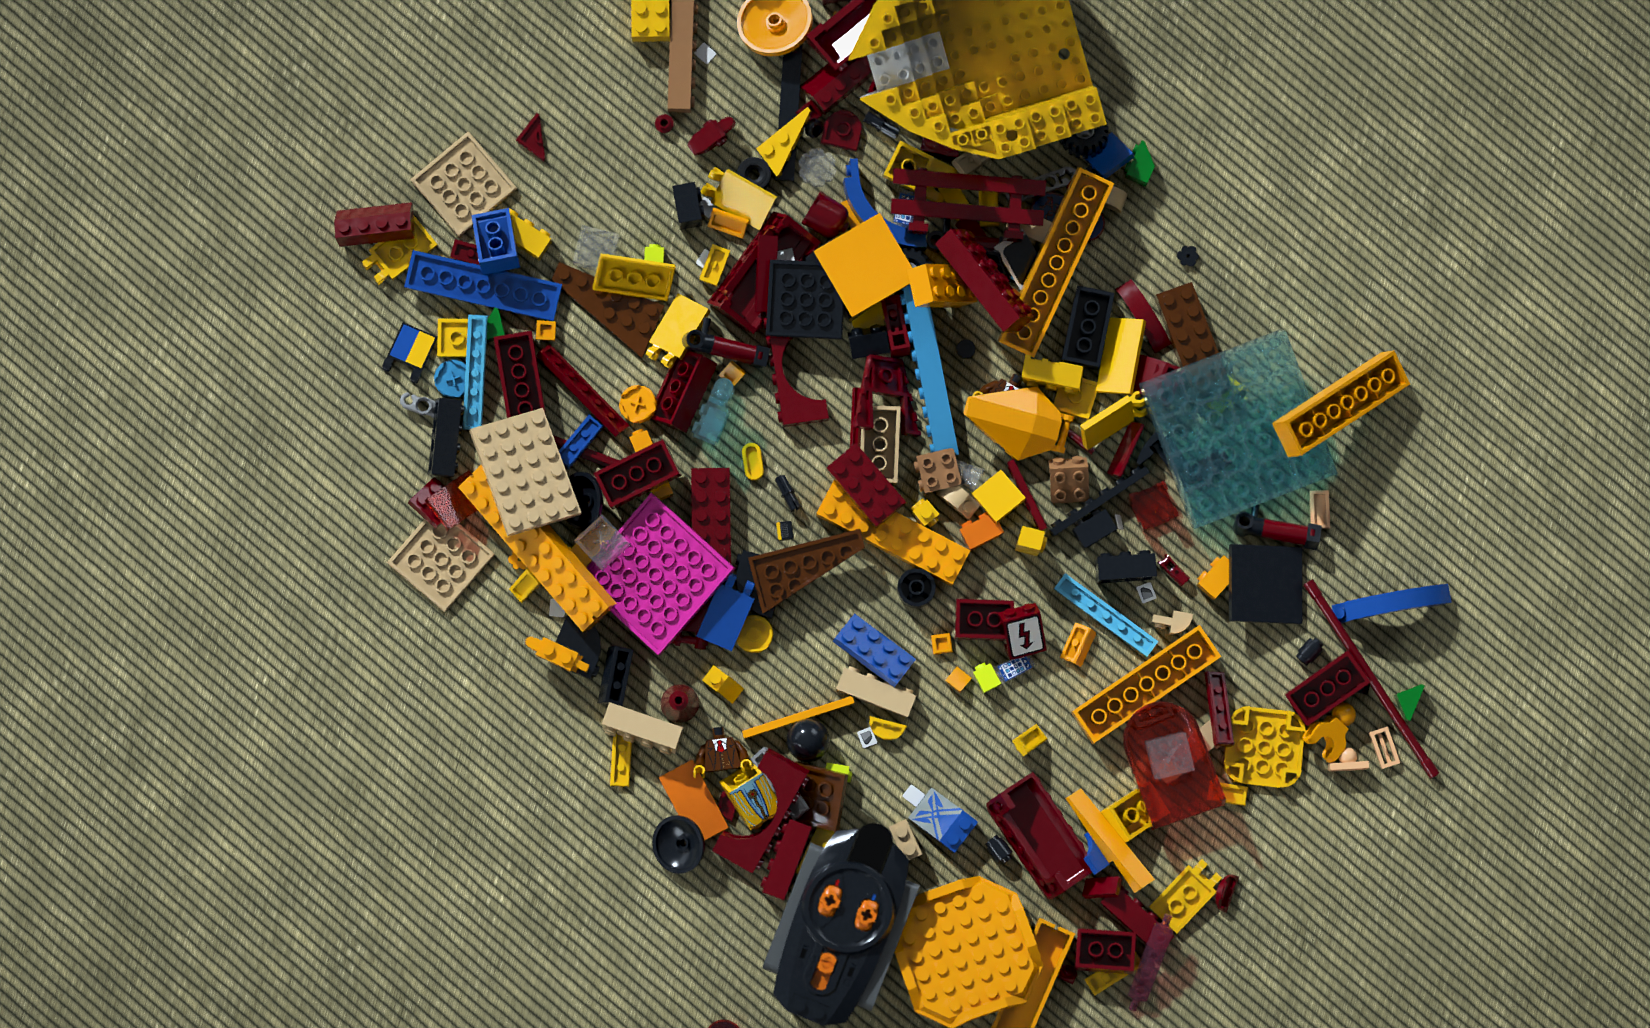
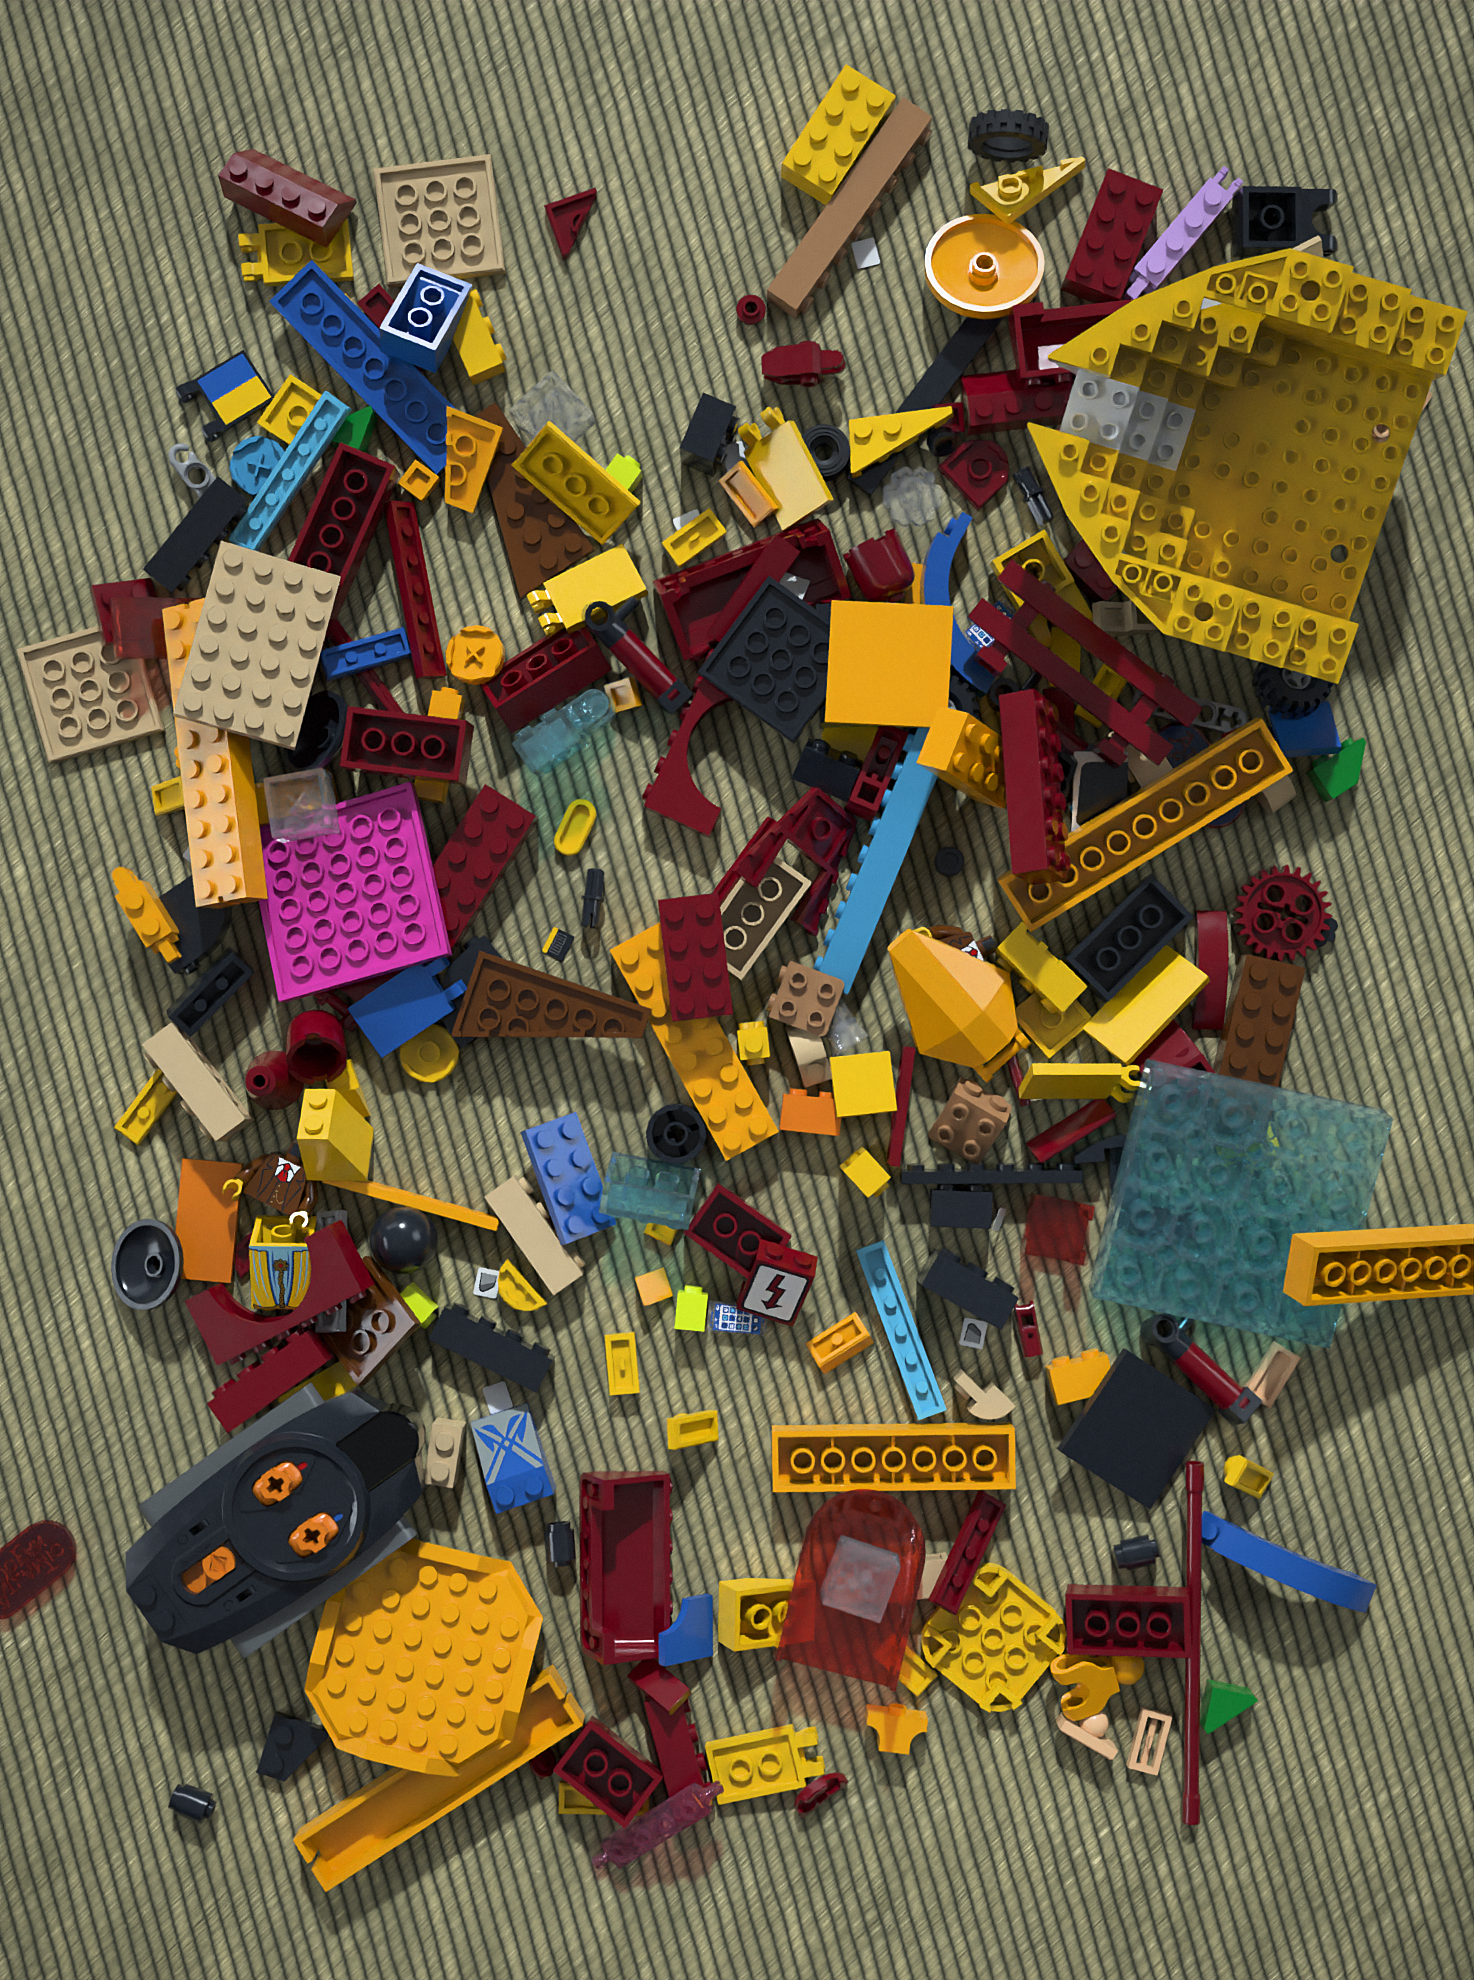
camera: 35 degrees right, 5 degrees up
(566, 300) = (469, 457): none -> light orange wing
(693, 667) = (316, 1047): none -> dark red cylinder
(735, 709) = (333, 1138): none -> yellow slope
(893, 768) = (492, 1347): none -> black brick
(922, 627) = (649, 1190): none -> clear light blue brick
(968, 731) = (622, 1363): none -> yellow plate
(1109, 841) = (708, 1633): light orange slope -> none
(1156, 244) = (1274, 938): none -> dark red gear
(1243, 828) = (895, 1726): none -> light orange brick
(1341, 570) = (1246, 1475): none -> yellow tile

